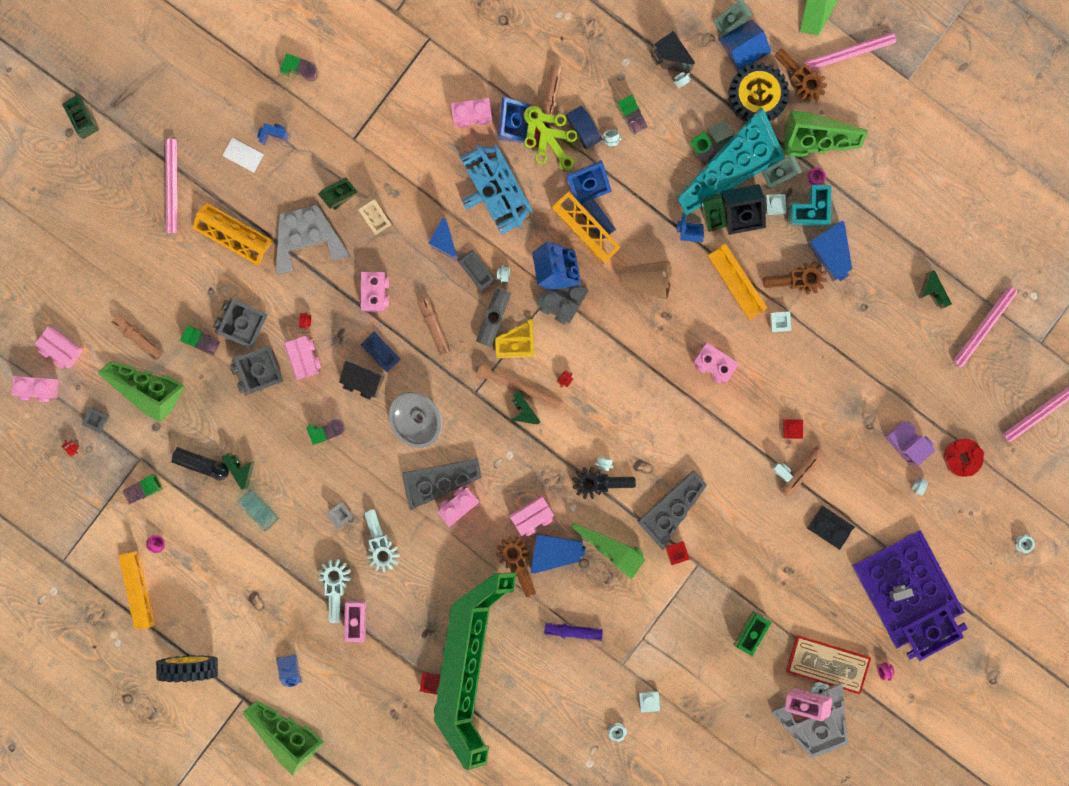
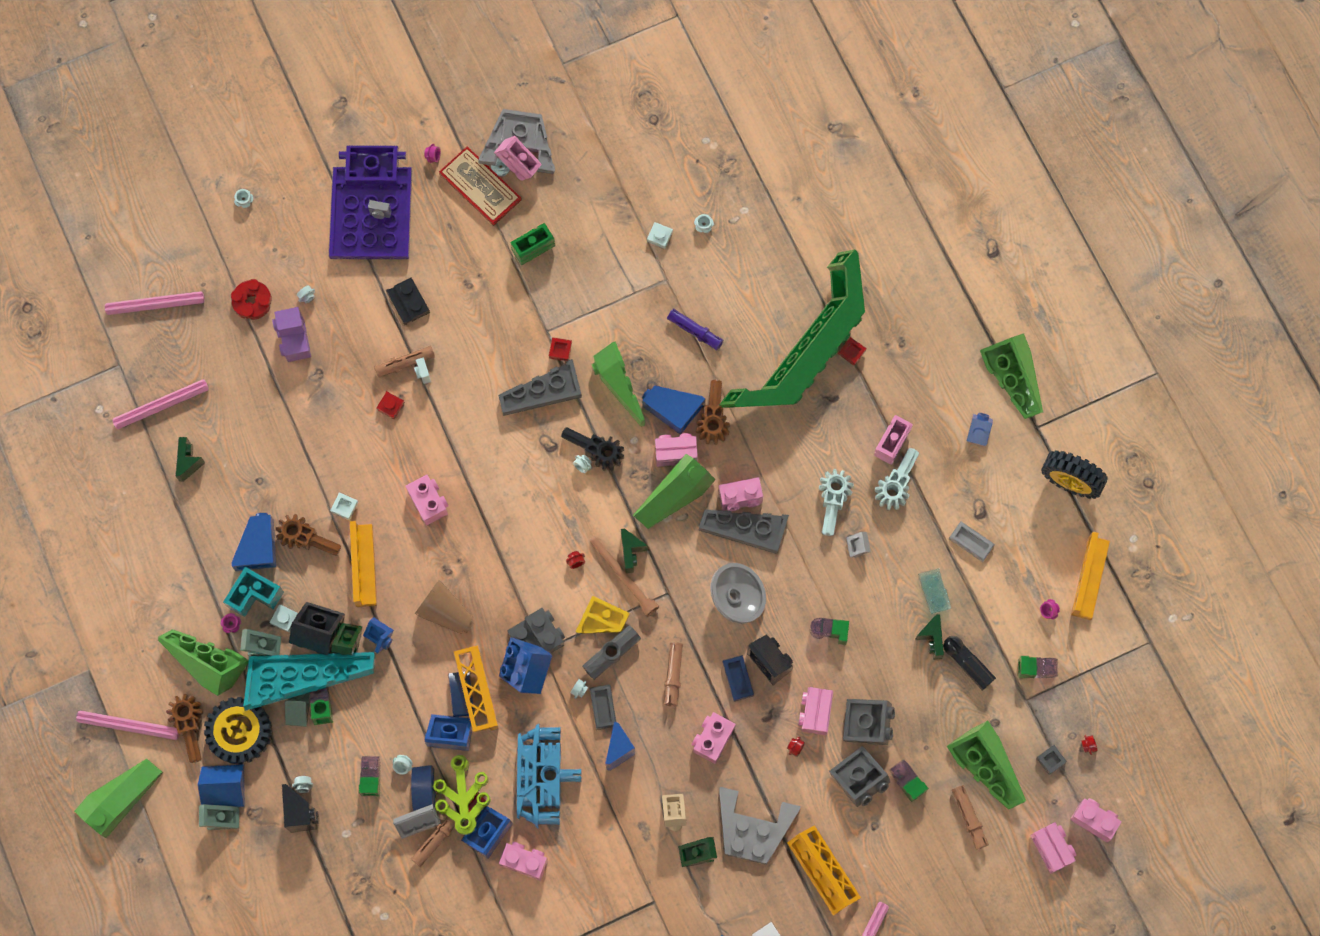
camera: 155 degrees left, 15 degrees down
(248, 569) = (971, 541): none -> light grey tile
(512, 484) = (679, 488): none -> bright green wedge
(573, 98) = (417, 821): none -> light grey plate

